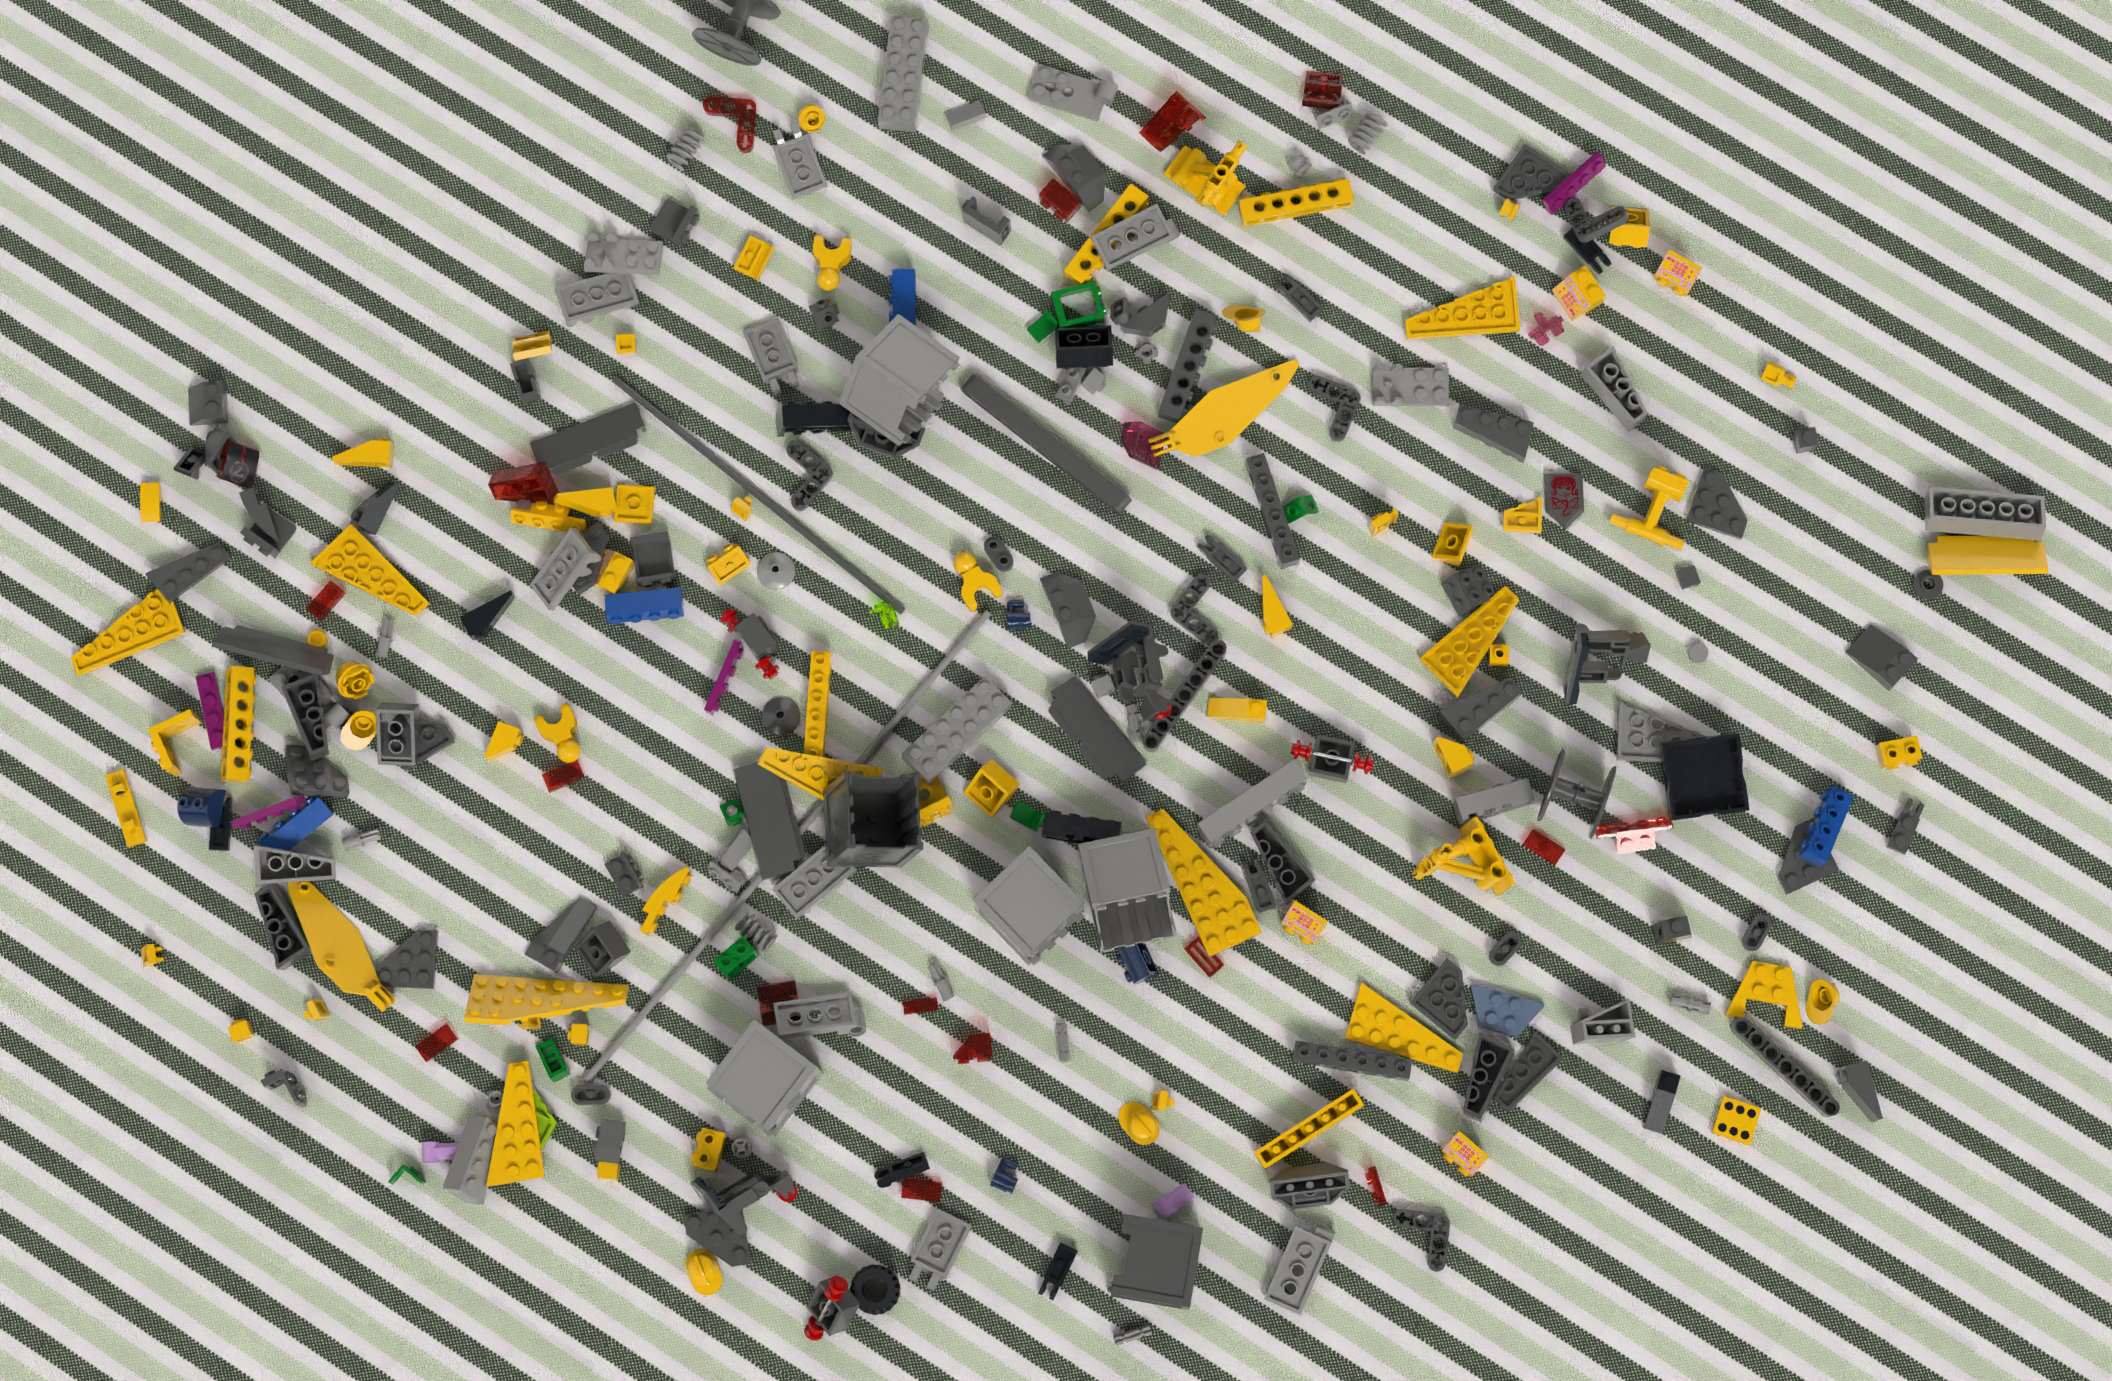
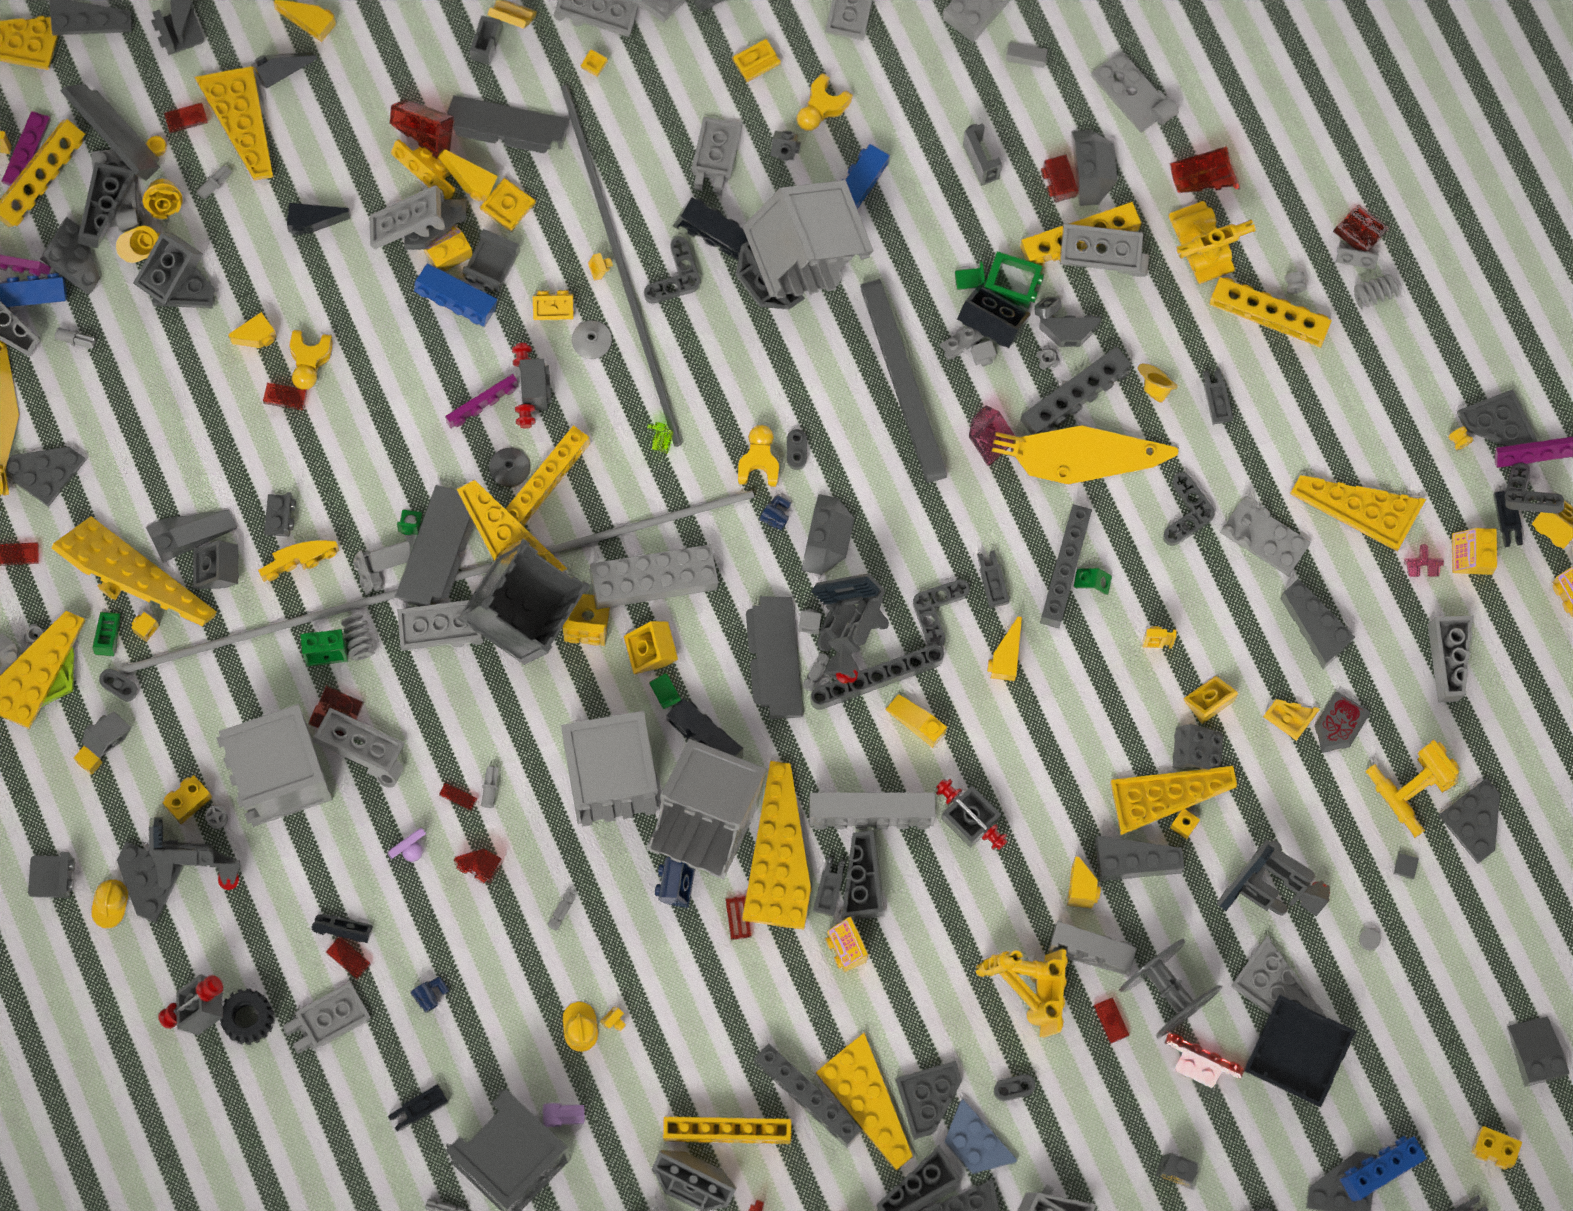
camera: 25 degrees right, 5 degrees down
(643, 1281) = (51, 876): none -> dark grey bracket
(909, 1071) = (409, 847): none -> lavender tile

